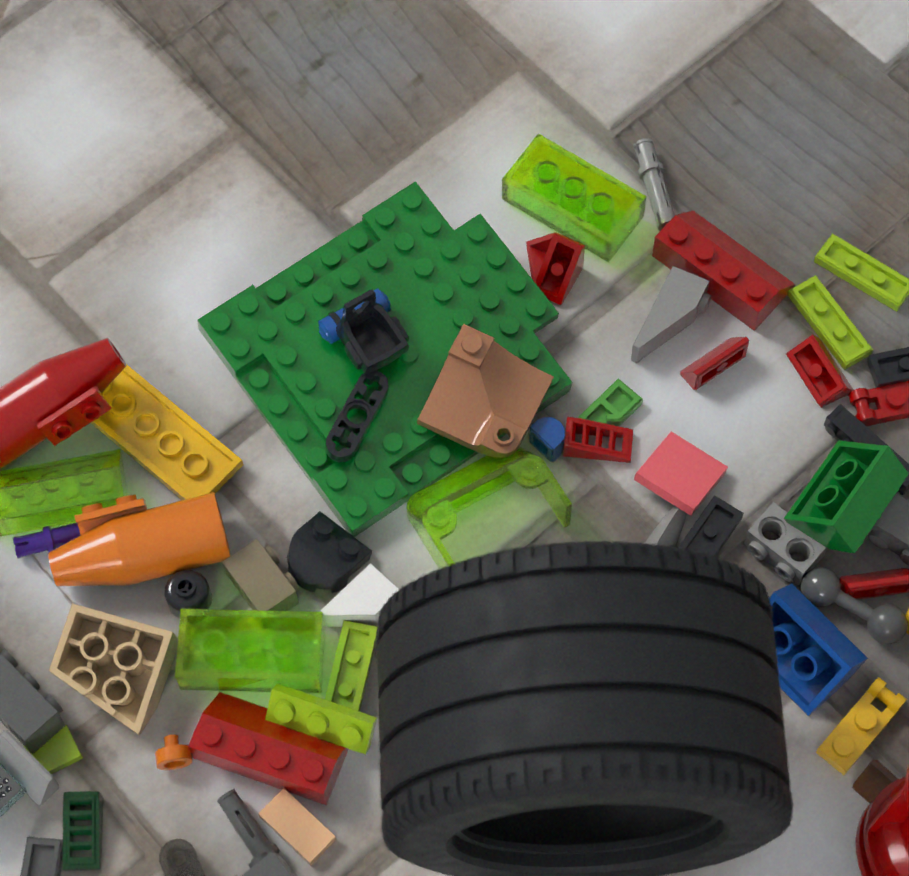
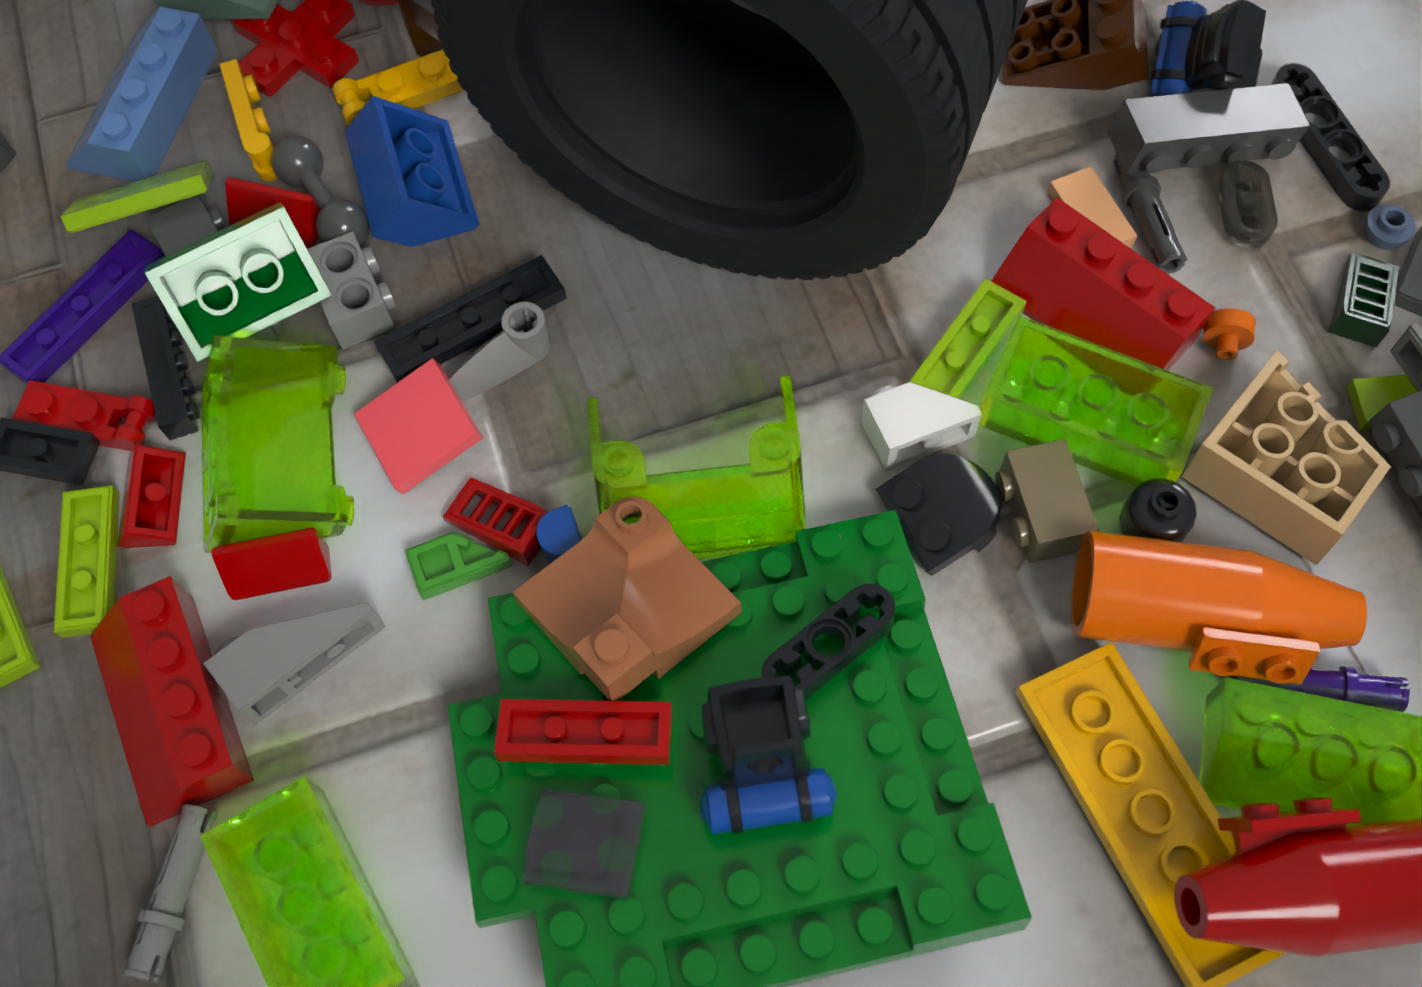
camera: 155 degrees left, 0 degrees up
(321, 718) = (1027, 288): lime plate -> none
(442, 264) = (584, 843): none -> piece
(475, 310) = (584, 731): none -> red plate
(555, 264) = (409, 811): red slope -> none
(758, 416) = (270, 441): none -> clear neon green windscreen

